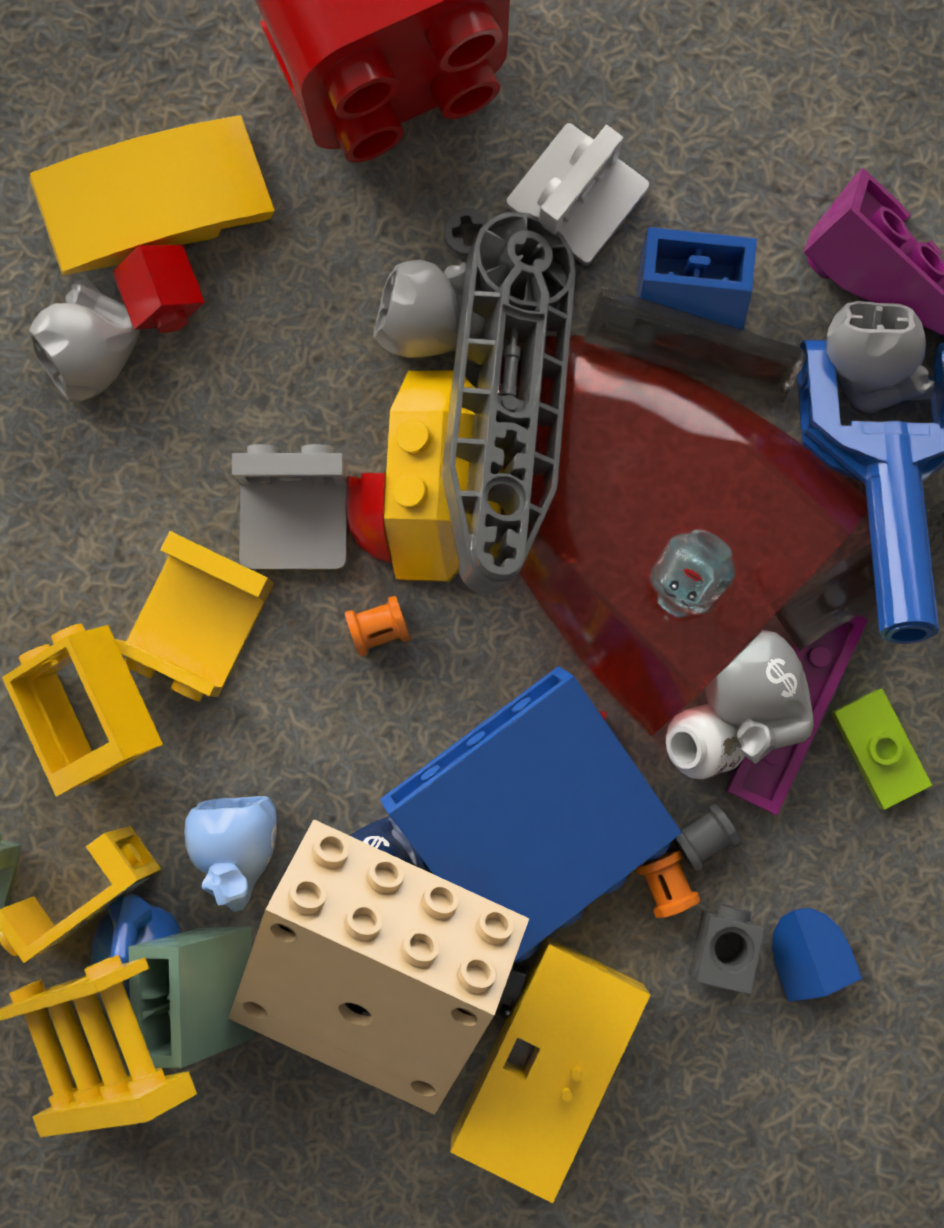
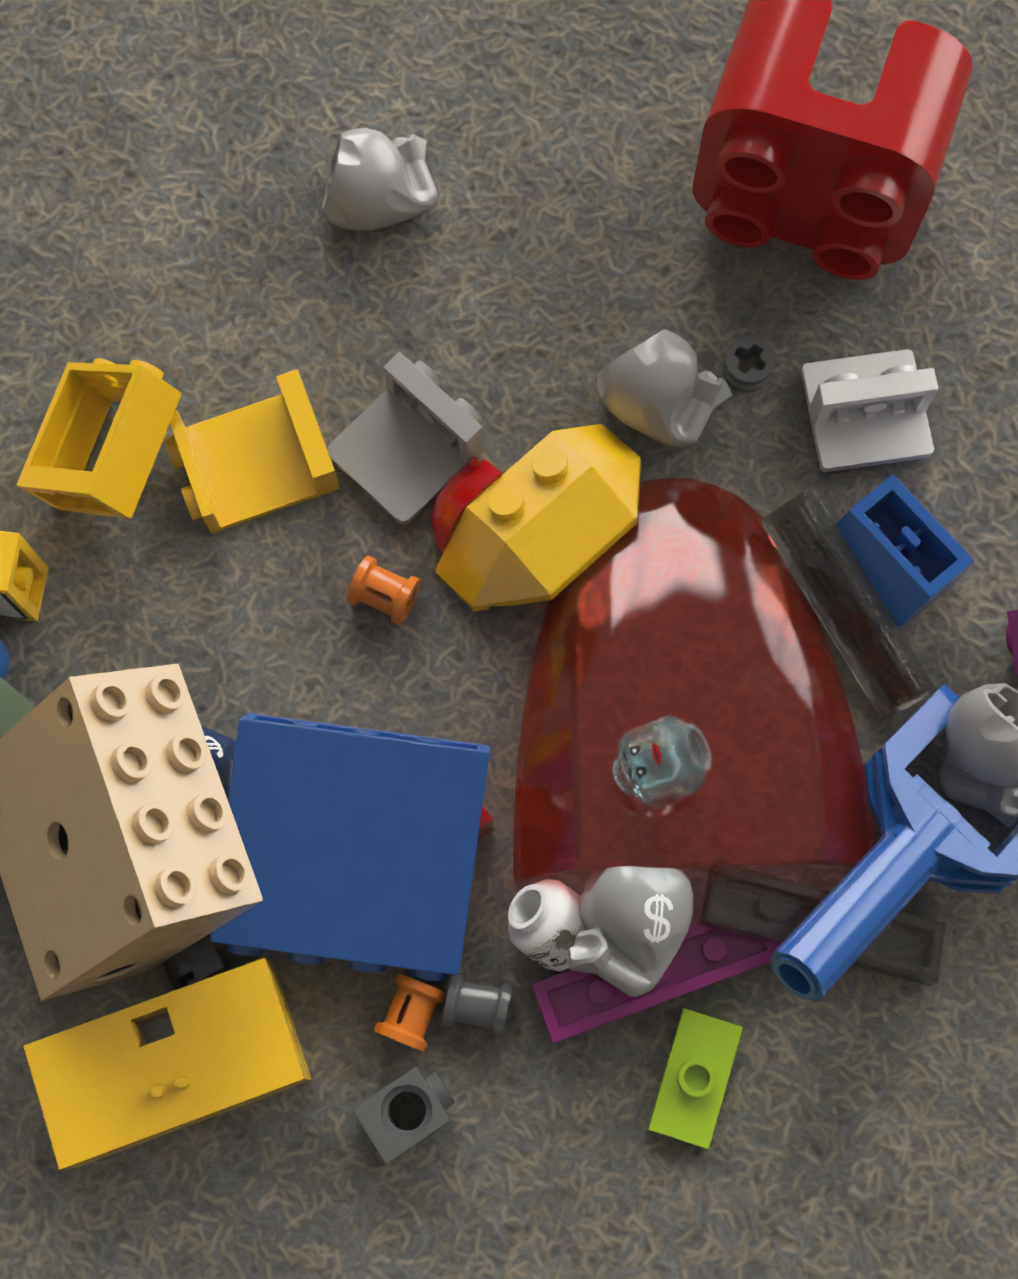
camera: 45 degrees right, 10 degrees down
(151, 192) = (533, 123): yellow slope -> none
(158, 287) = (470, 190): red brick -> none
(231, 845) = (105, 637): light blue piece -> none
(509, 291) = (745, 417): dark grey beam -> none
(812, 955) = (472, 1190): blue brick -> none

